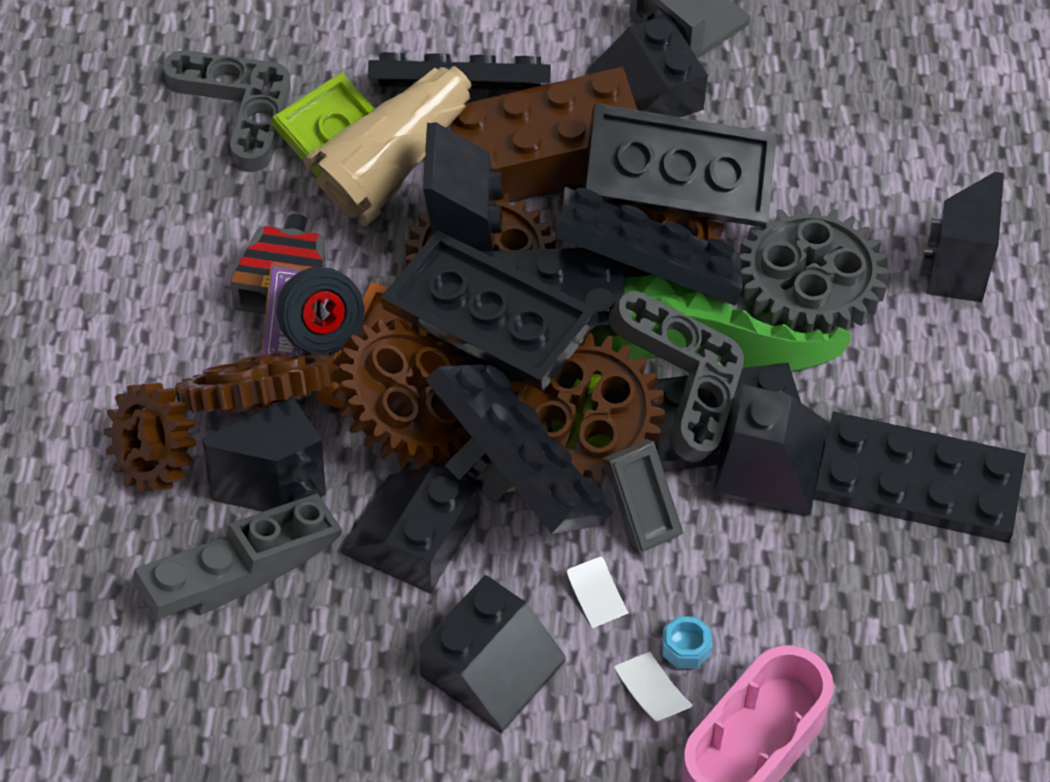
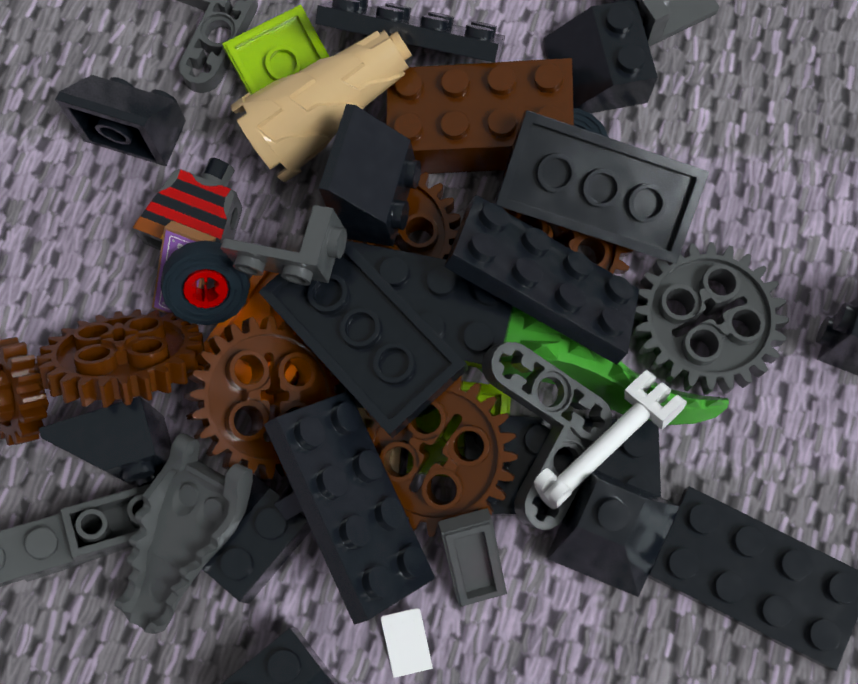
camera: 15 degrees right, 20 degrees up
(191, 199) = (124, 117): none -> black slope
(353, 516) = (182, 526): none -> dark grey animal
(407, 257) = (322, 243): none -> dark grey bracket
(767, 332) = (645, 406): none -> white hinge

